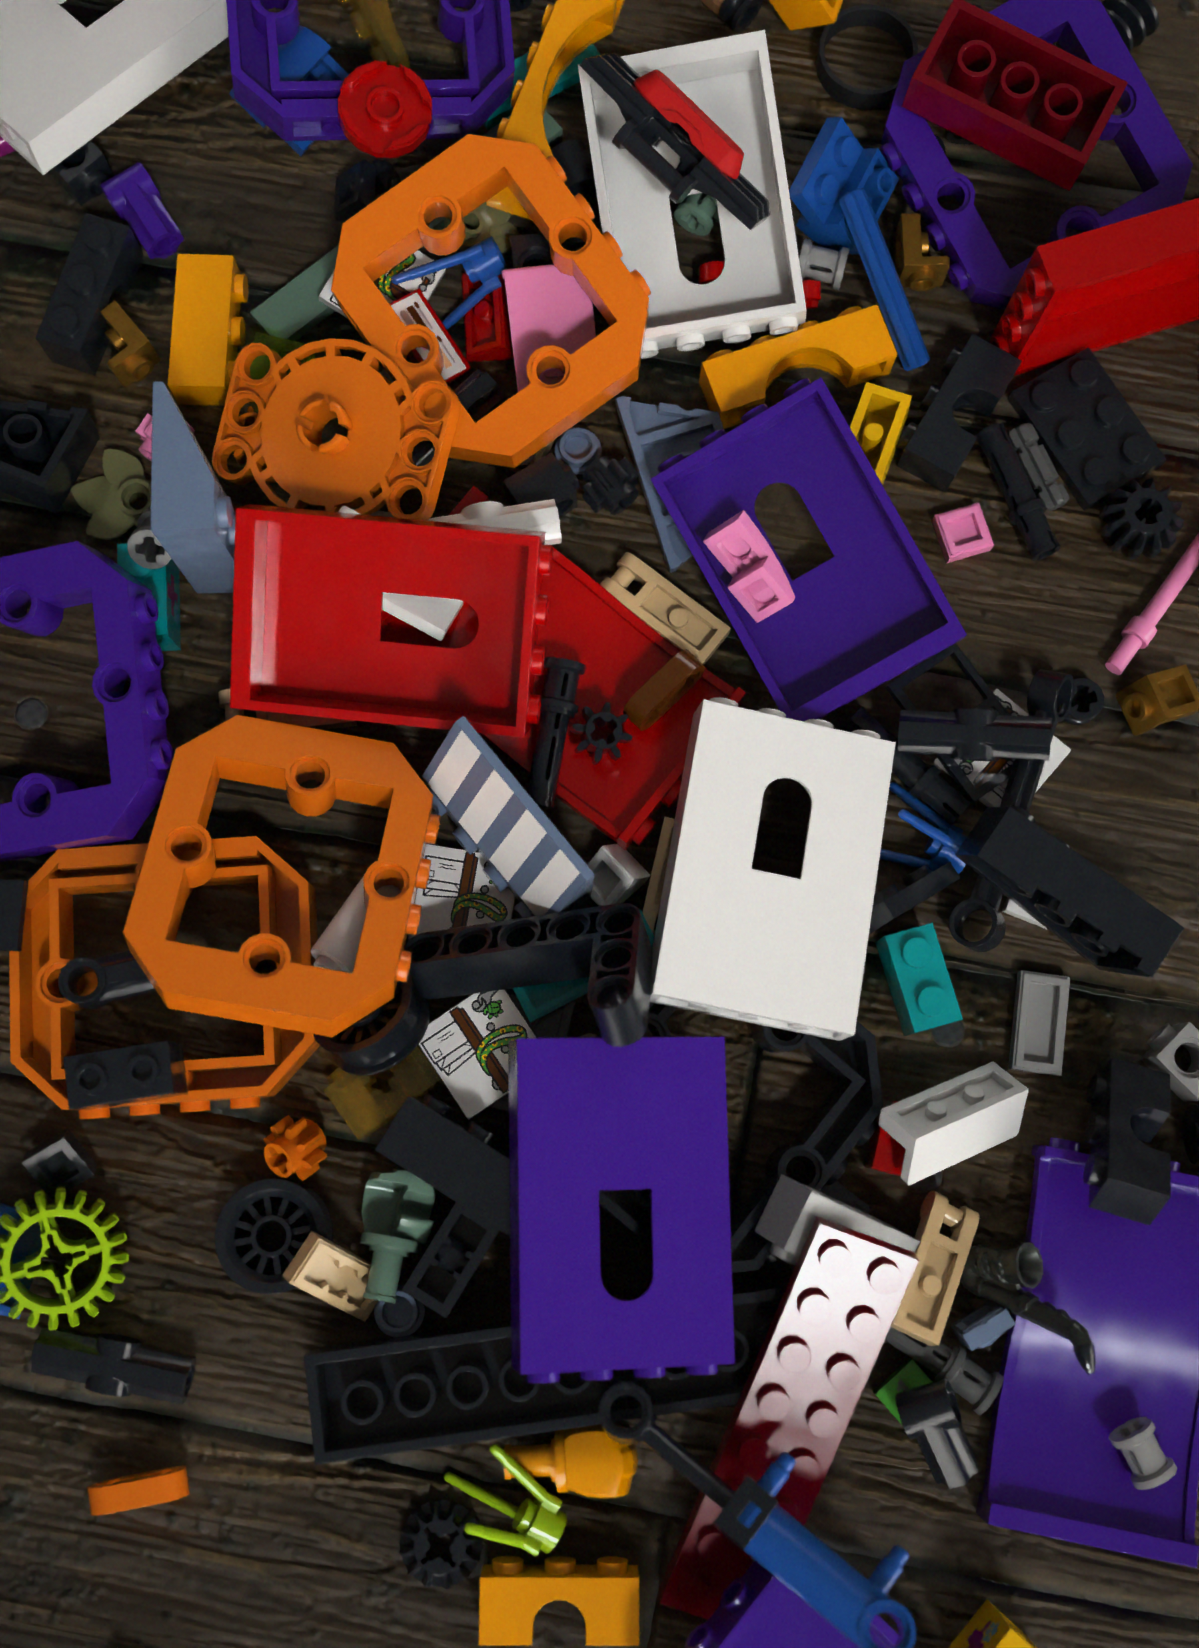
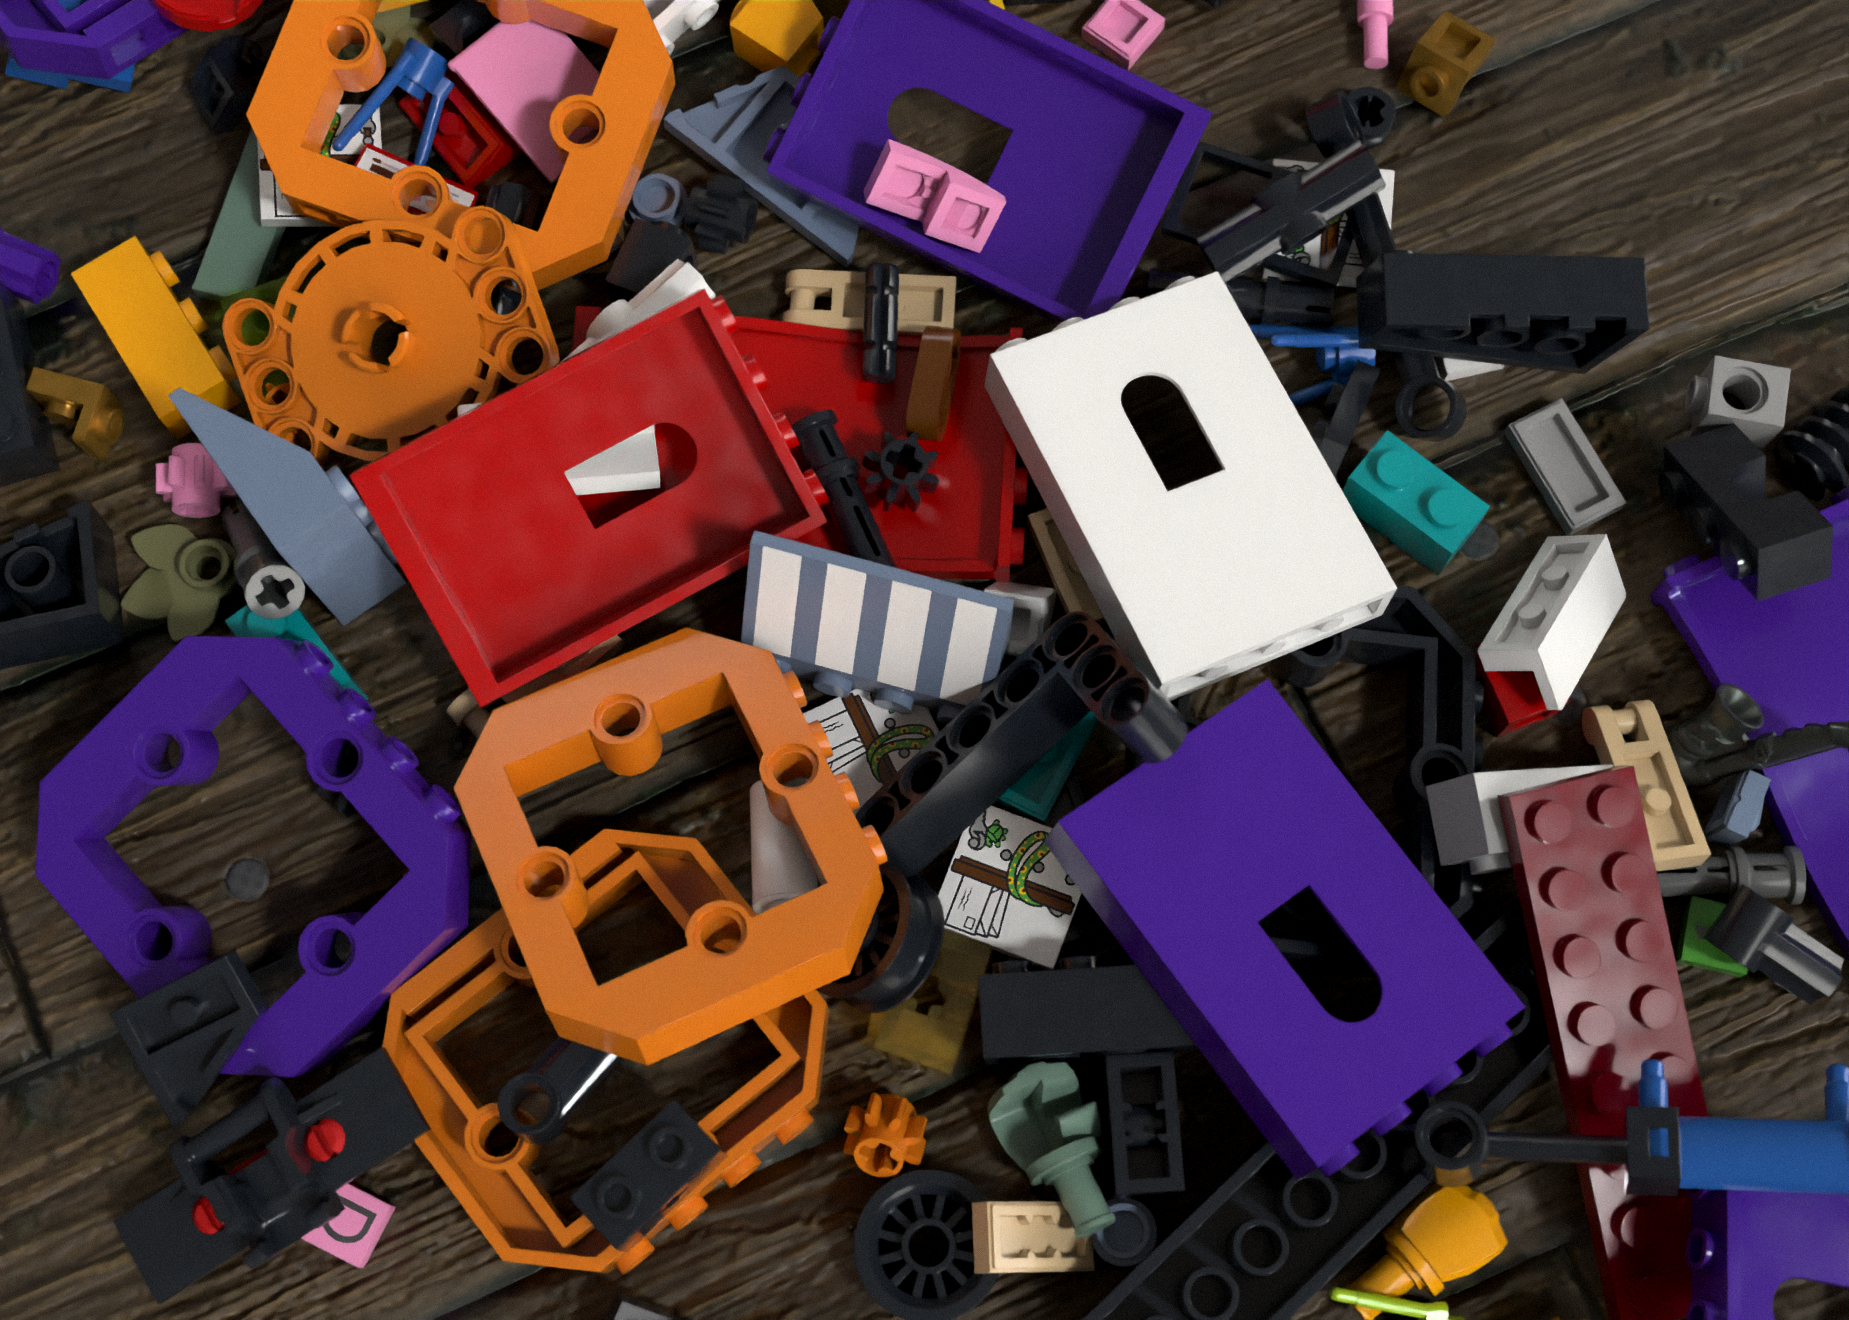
camera: 30 degrees left, 5 degrees down
(658, 627) = (880, 323): none -> black axle

